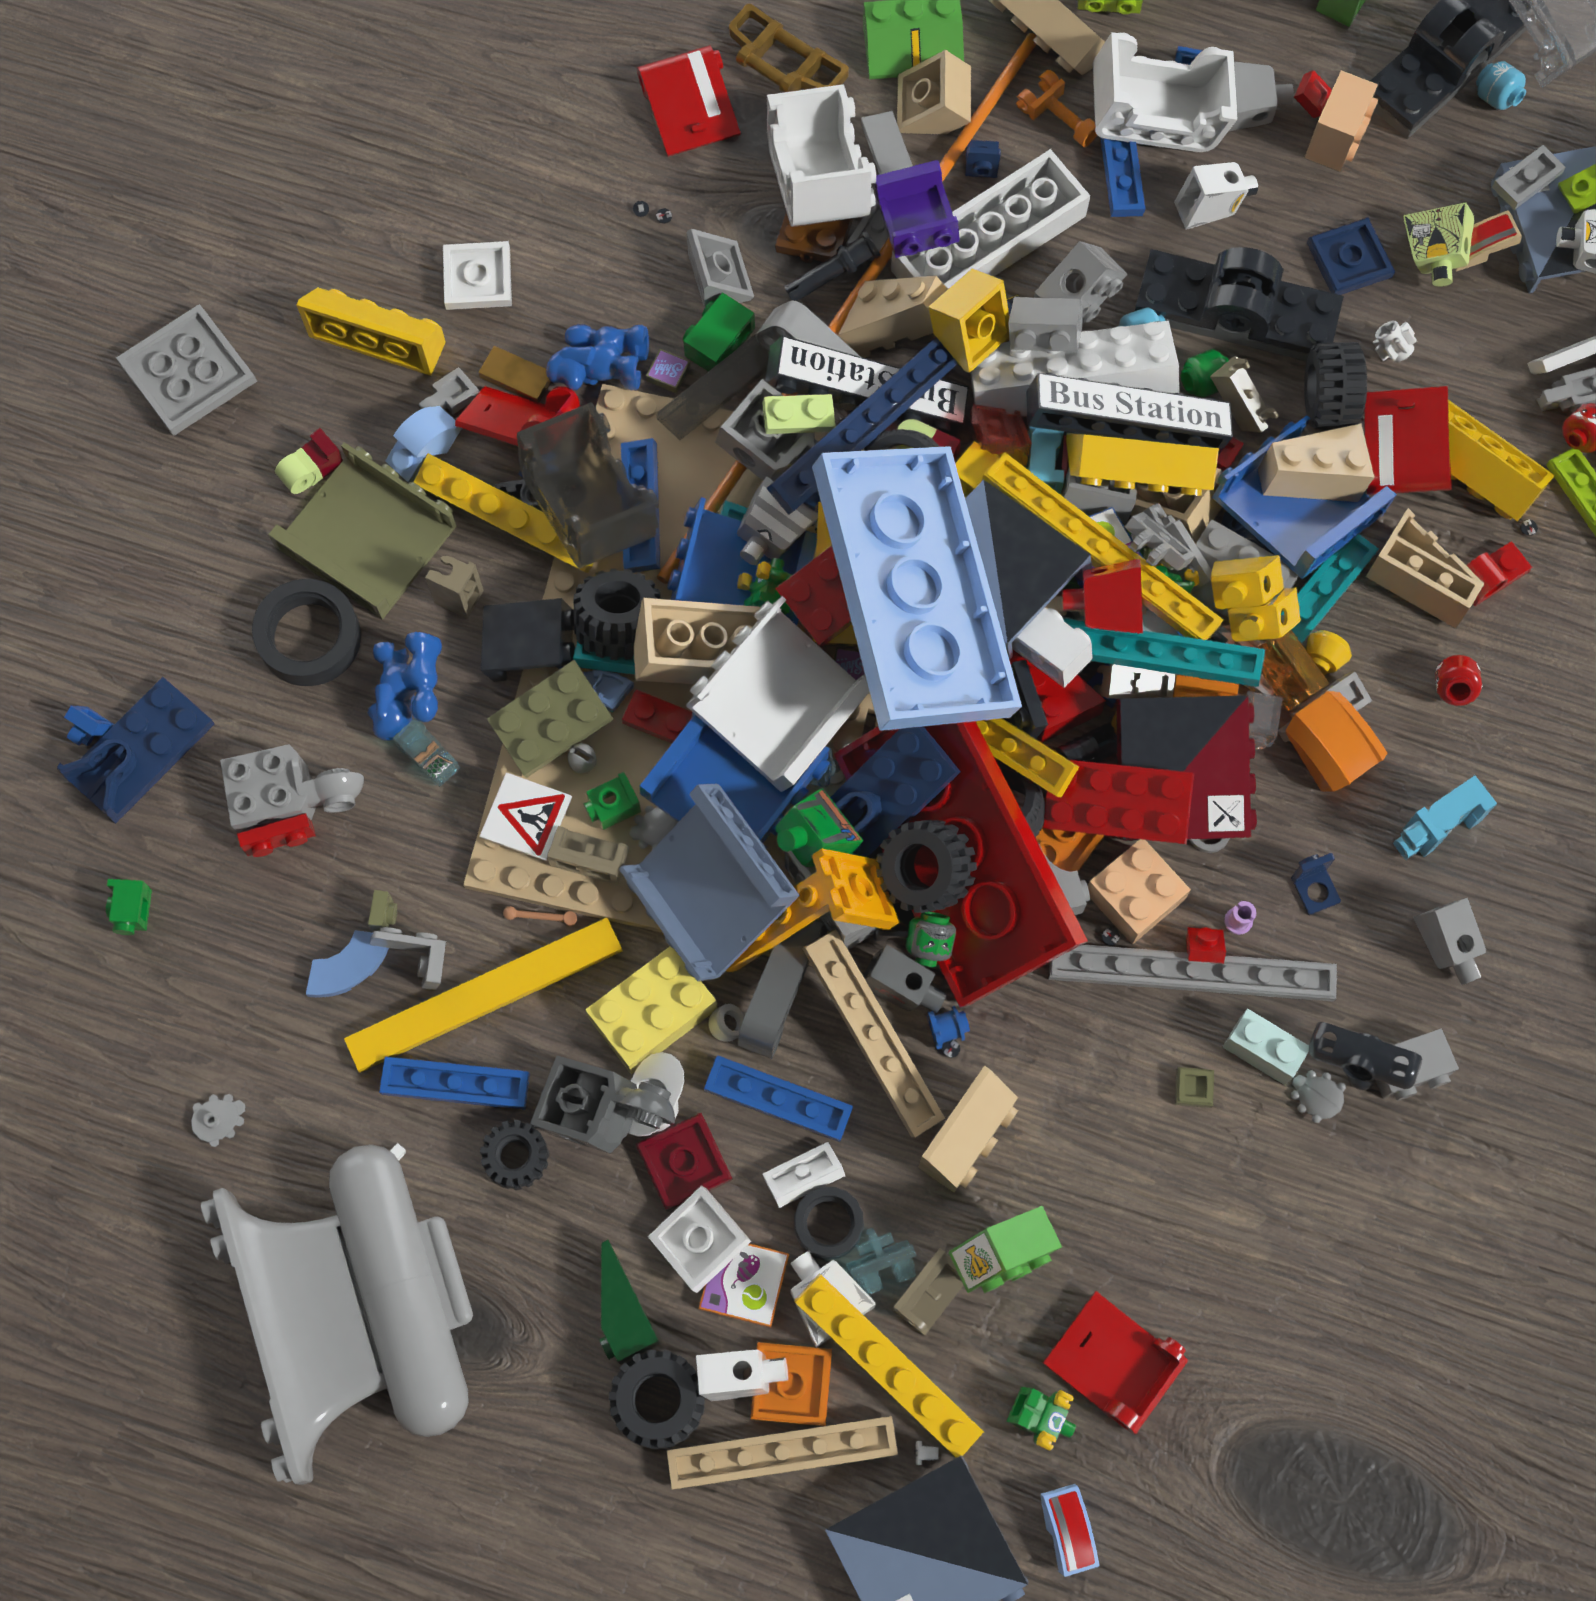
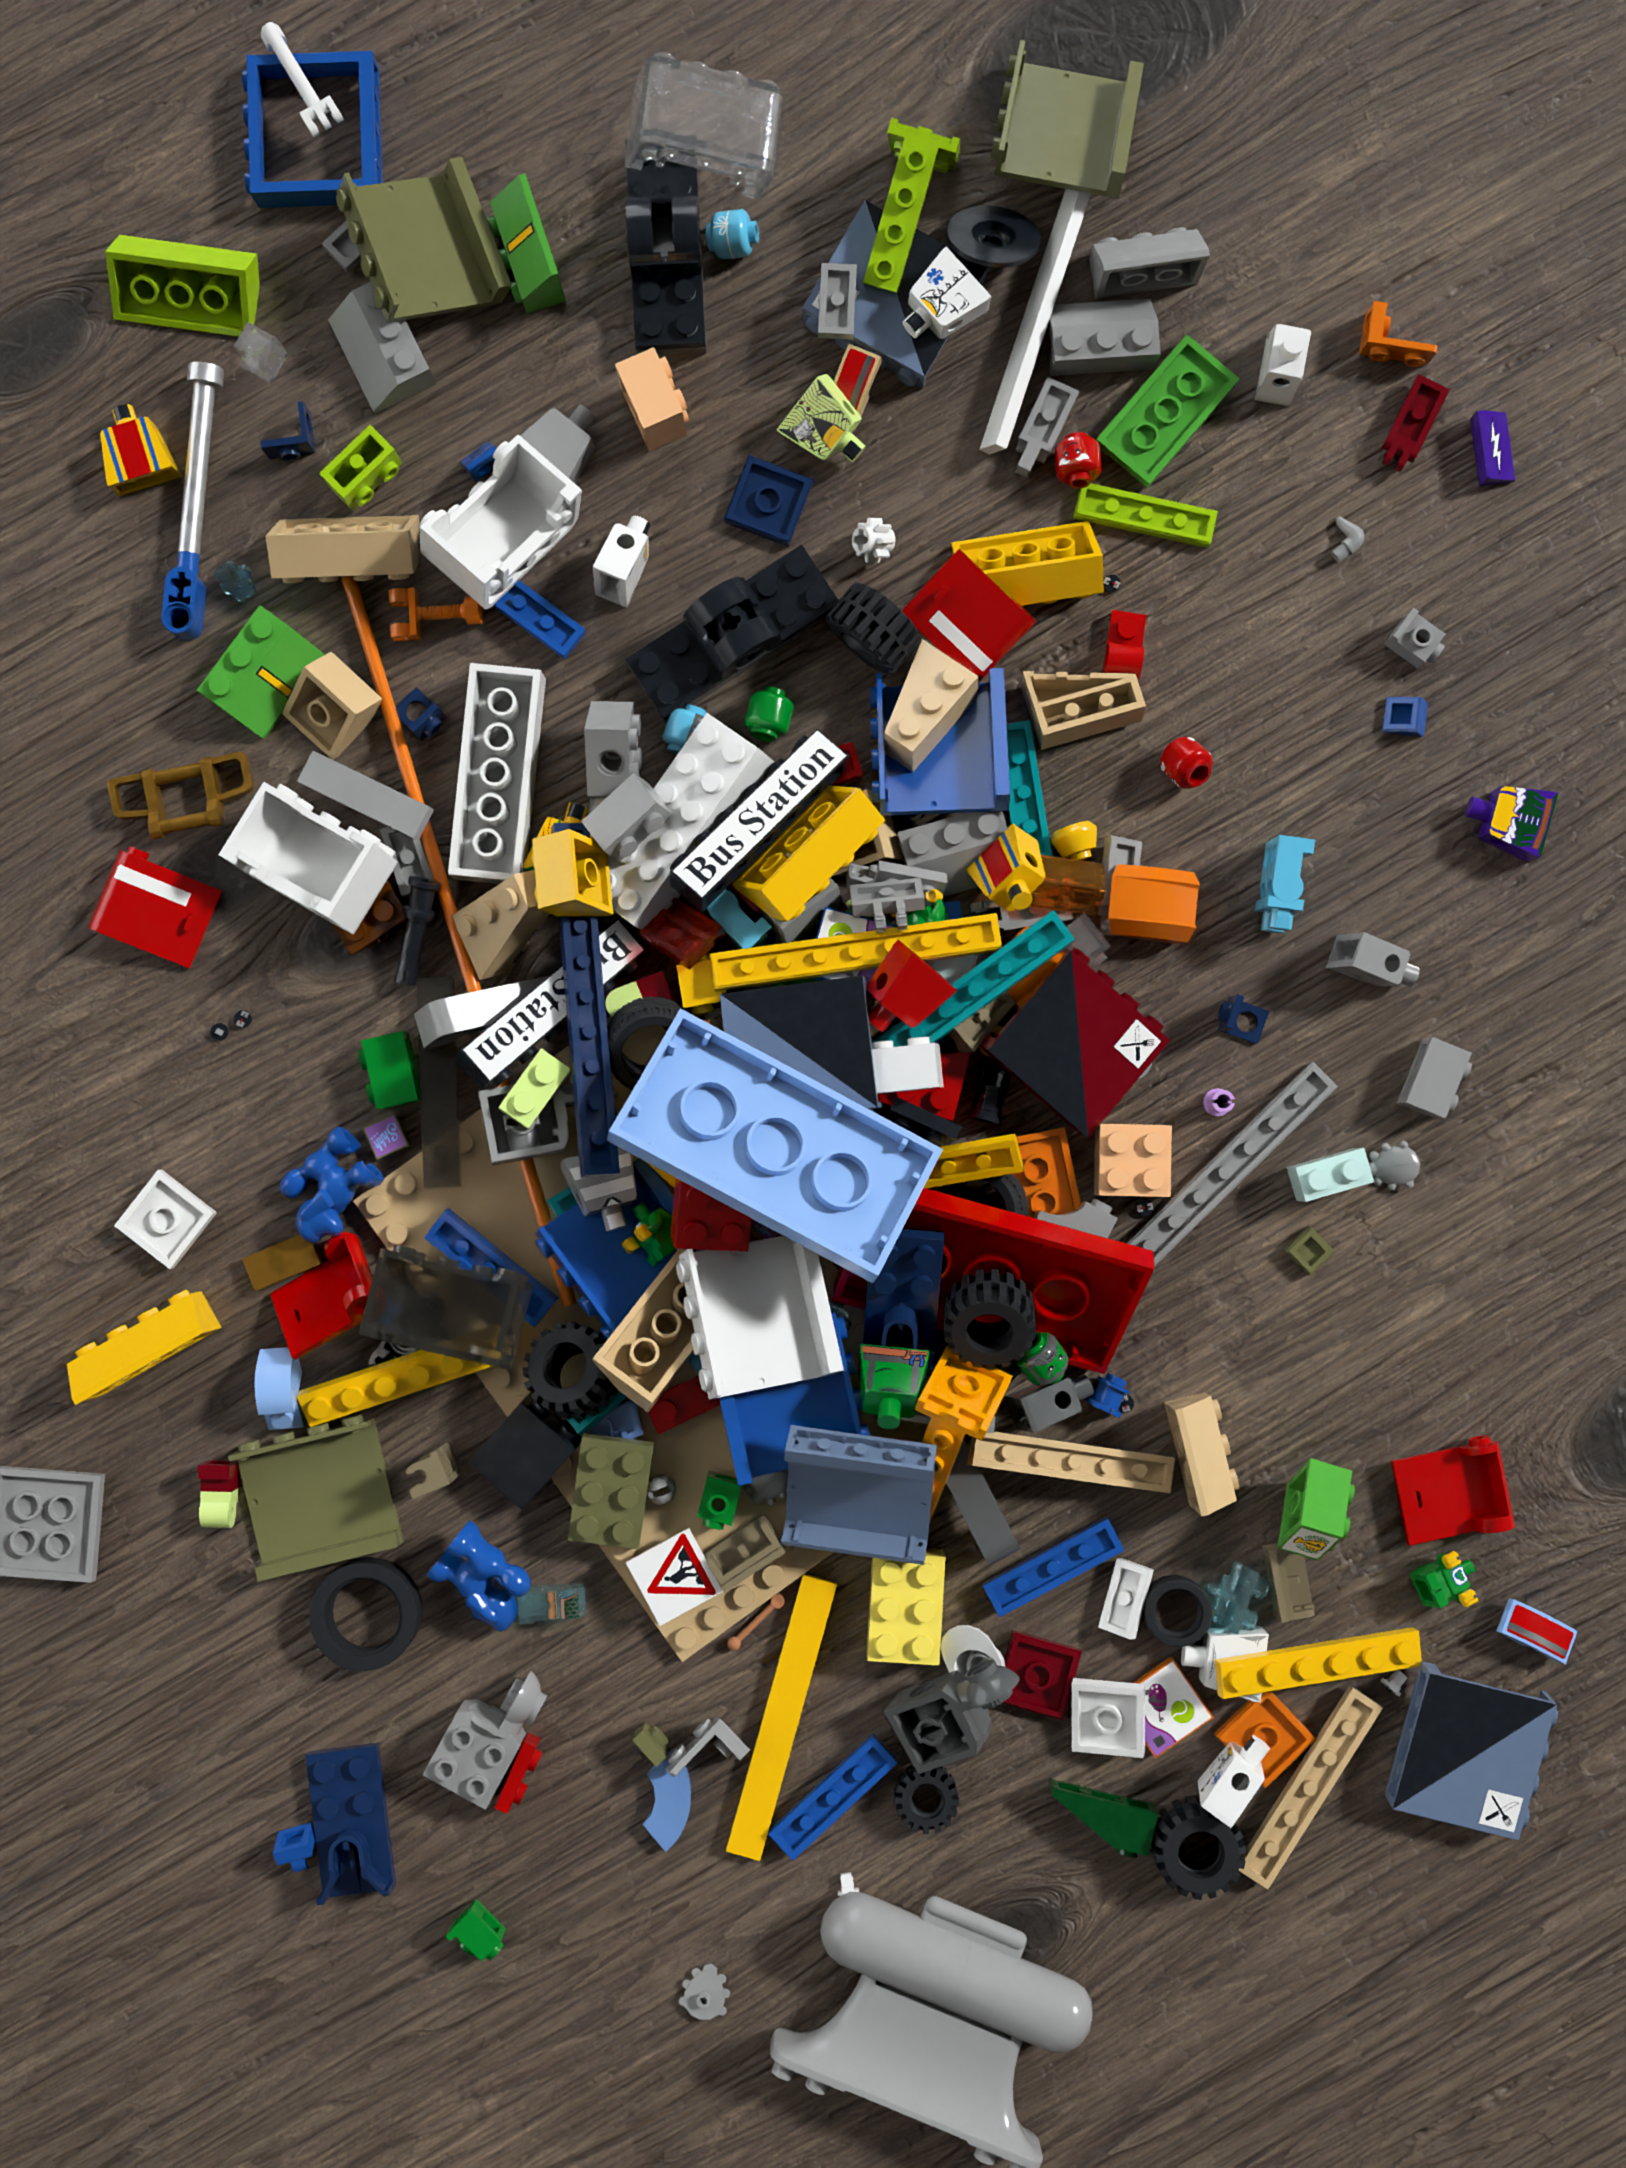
camera: 45 degrees left, 15 degrees up
(451, 392) = (255, 1326): light grey plate -> none
(717, 1025) = (956, 1562): white piece -> none
(718, 267) = (333, 1019): light grey slope -> none
(916, 209) = (431, 825): dark purple panel -> none
(1123, 803) = (1065, 1116): red plate -> none
(1205, 945) = (1216, 1146): red plate -> none
(1241, 581) = (976, 861): yellow torso -> none
(1244, 398) = (815, 706): dark tan hinge -> none
(1313, 93) = (603, 393): red plate -> none
(1364, 1057) = (1408, 1118): black piece -> none

